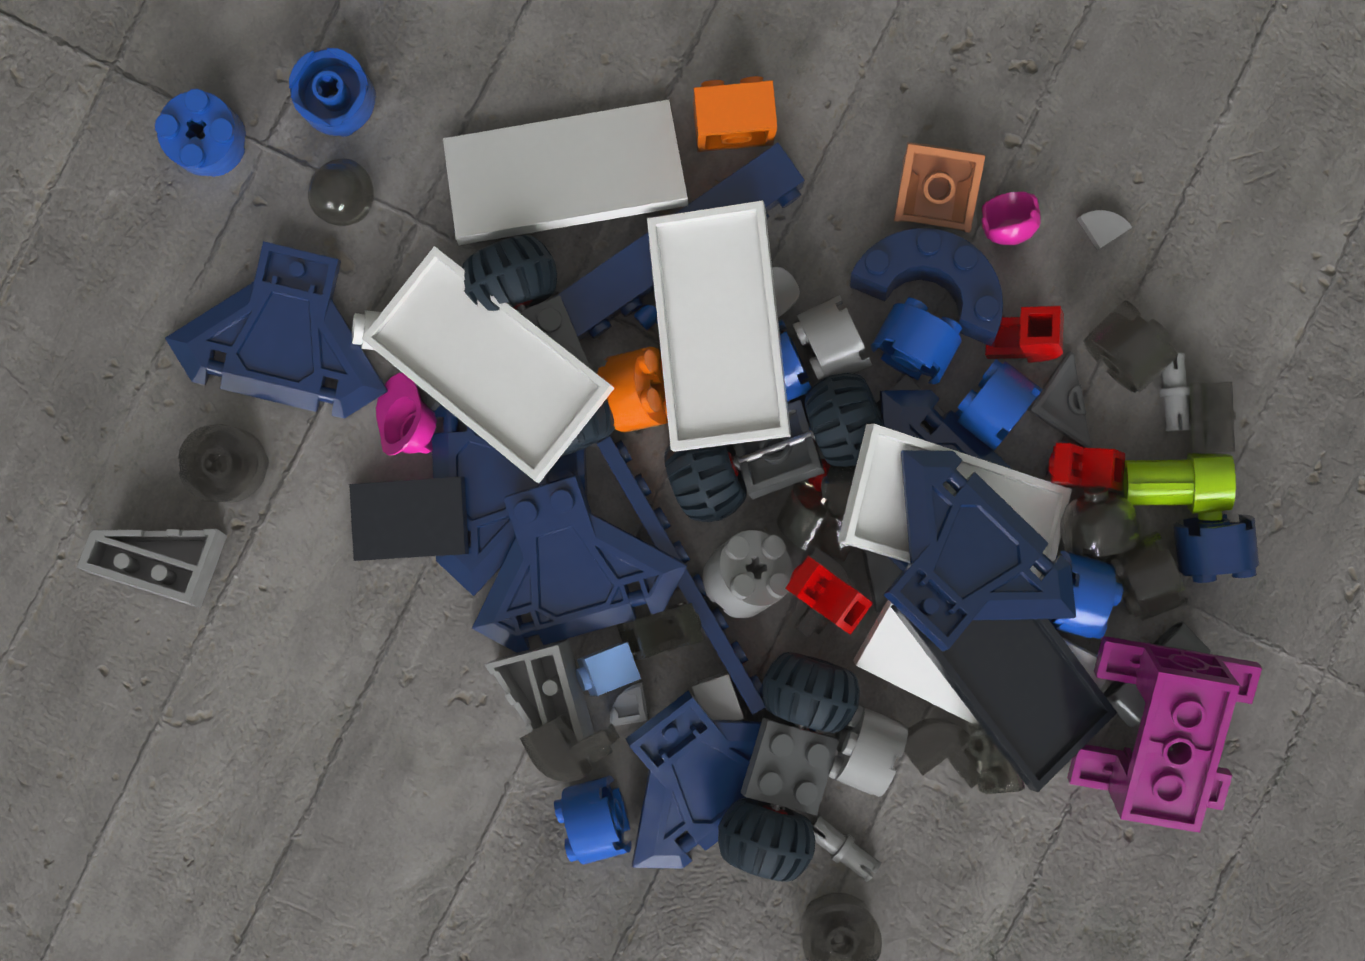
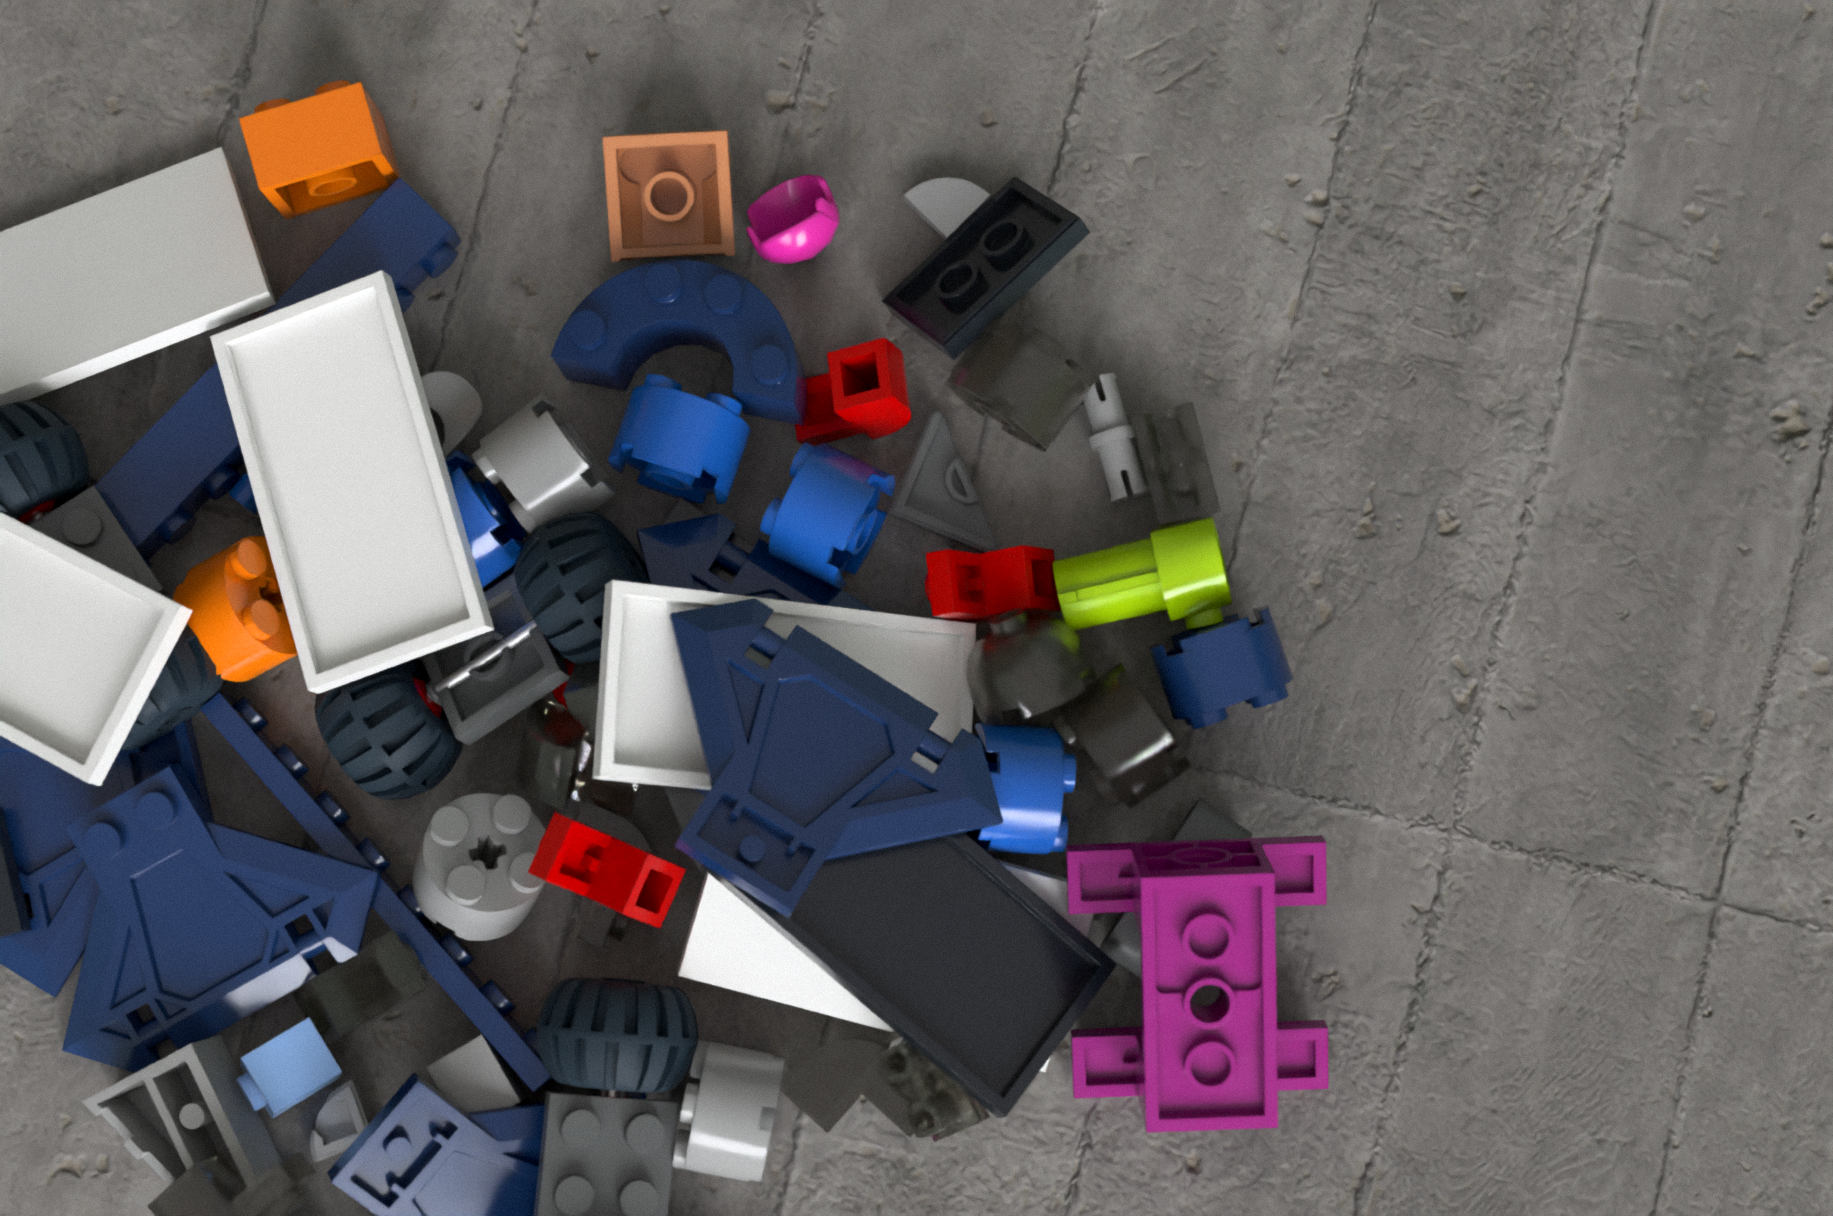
camera: 10 degrees left, 5 degrees down
(1123, 272) = (985, 267): none -> black tile

